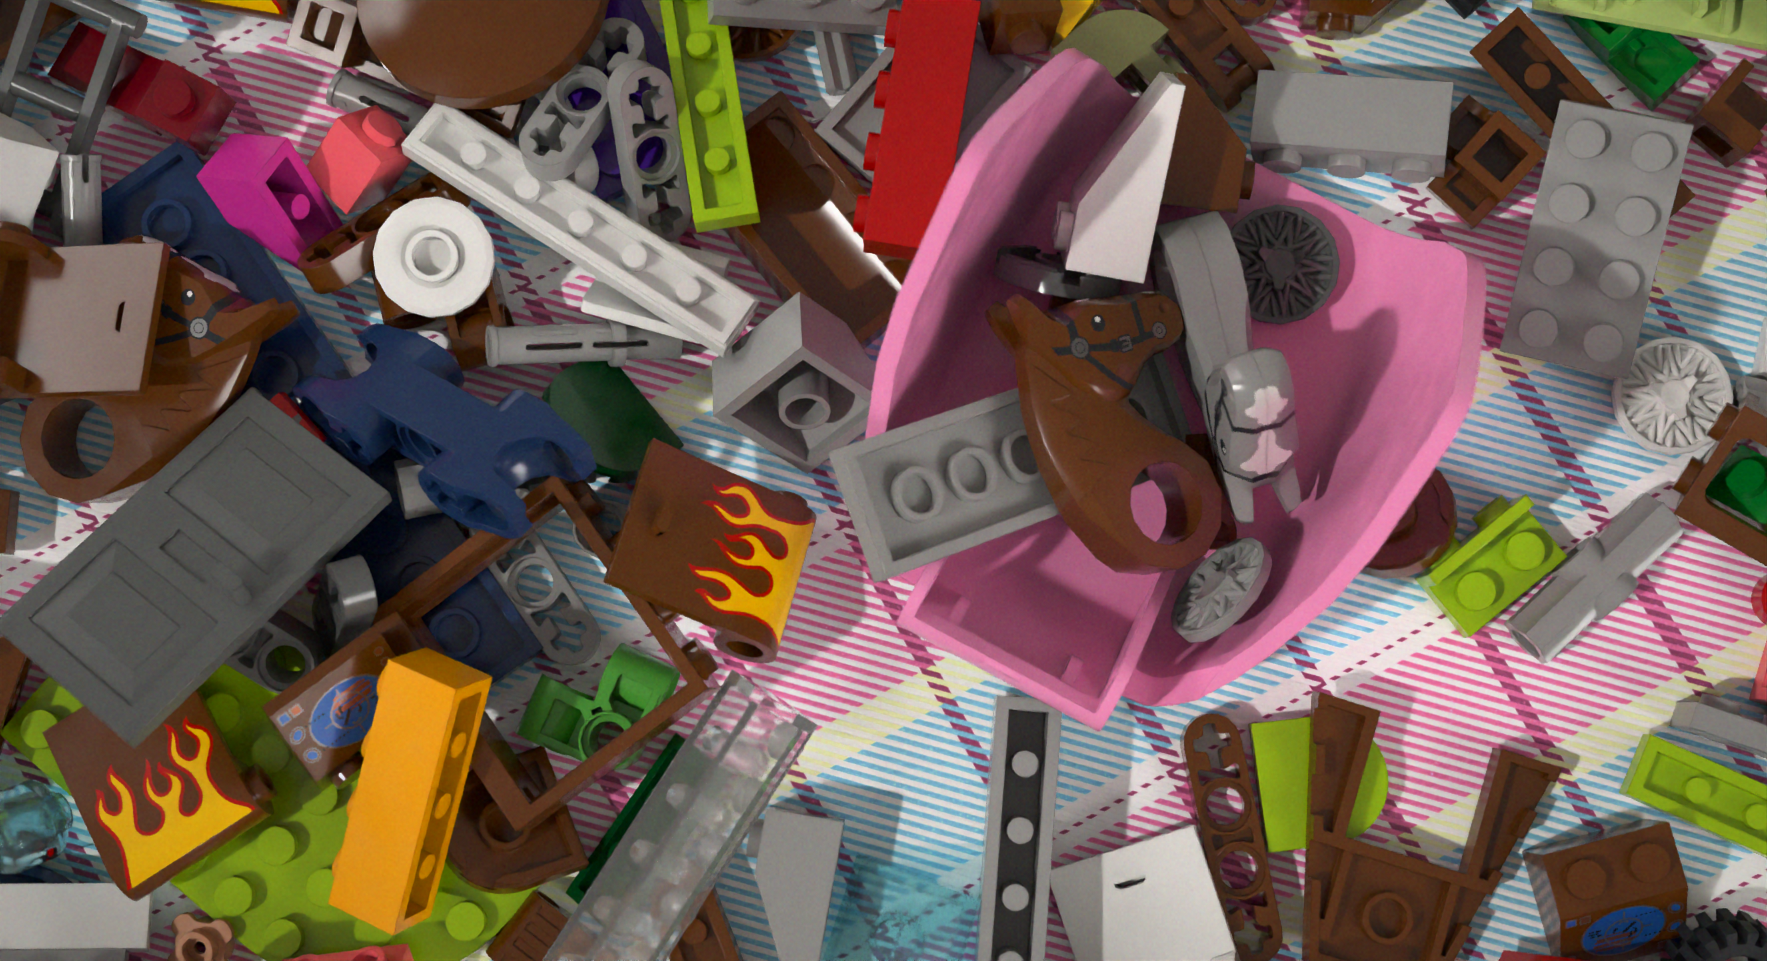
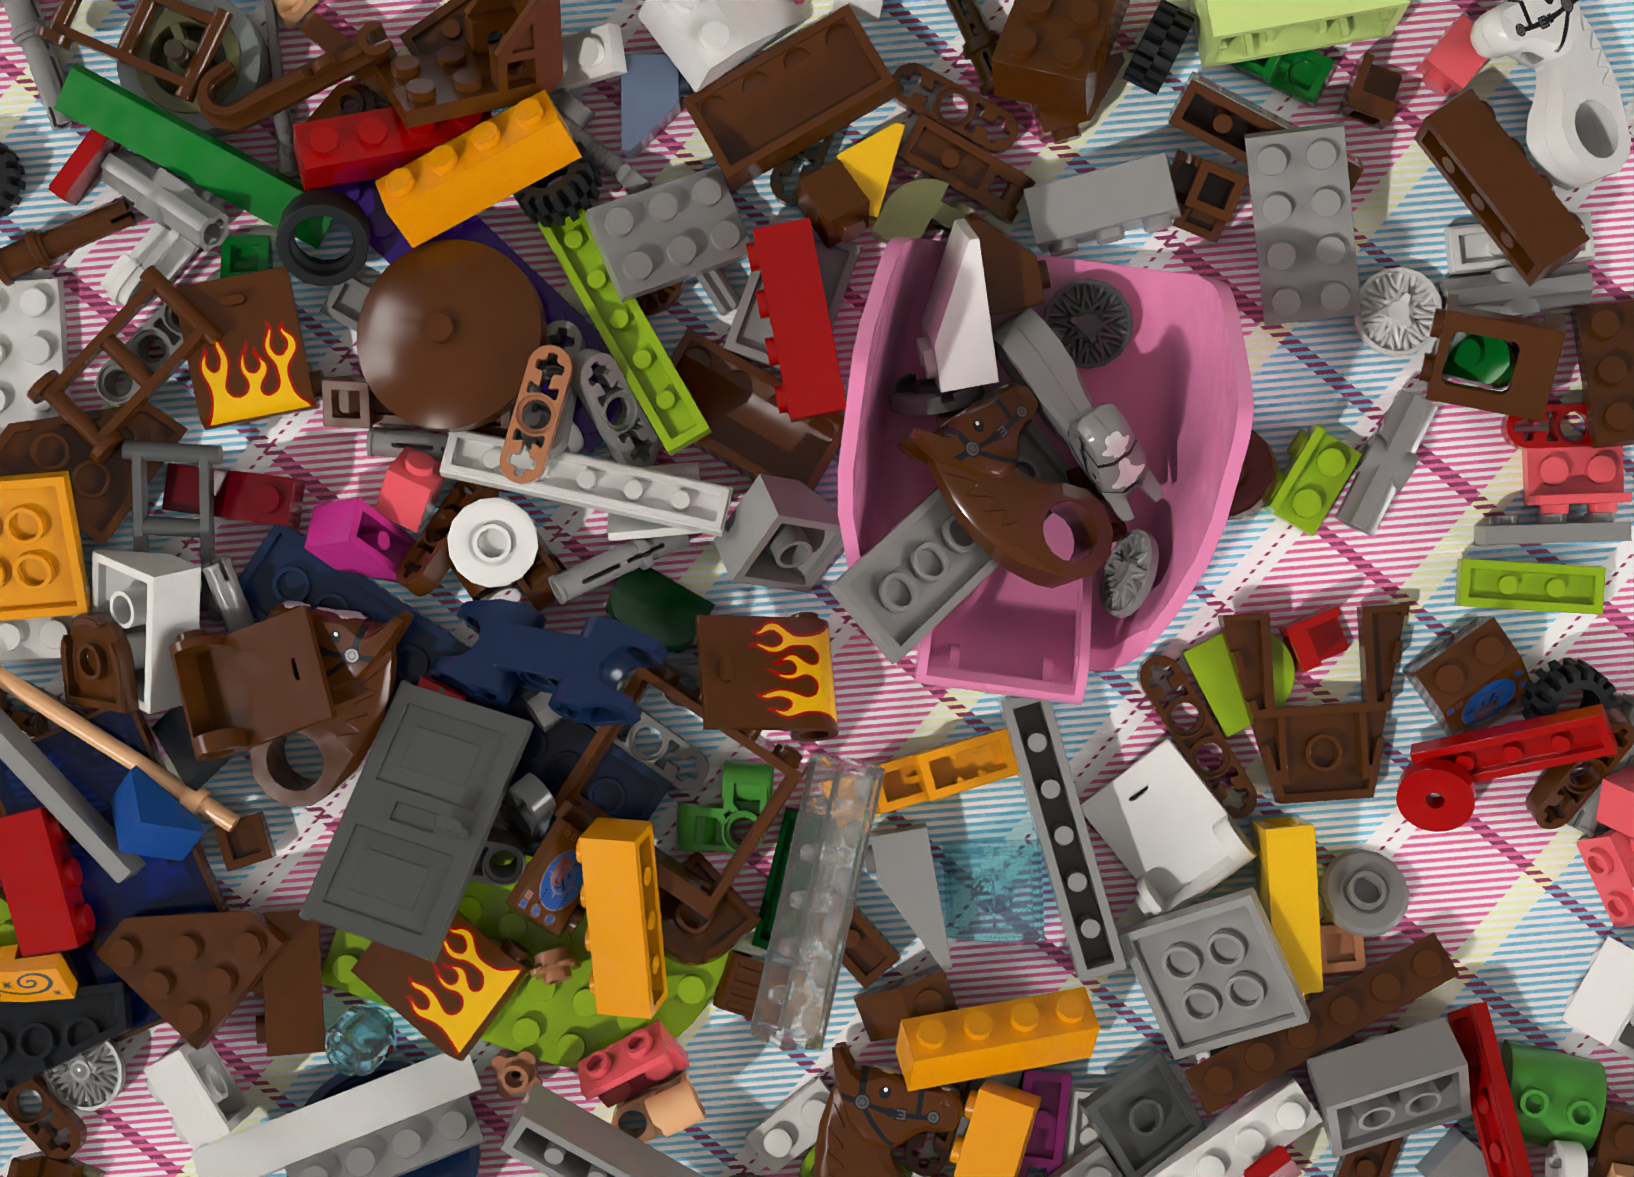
camera: 30 degrees left, 5 degrees up
(301, 822) = (554, 965): none -> nougat plate
(590, 84) = (558, 382): none -> nougat beam
(894, 761) = (946, 770): none -> light orange slope
(1425, 767) = (1314, 638): none -> red panel

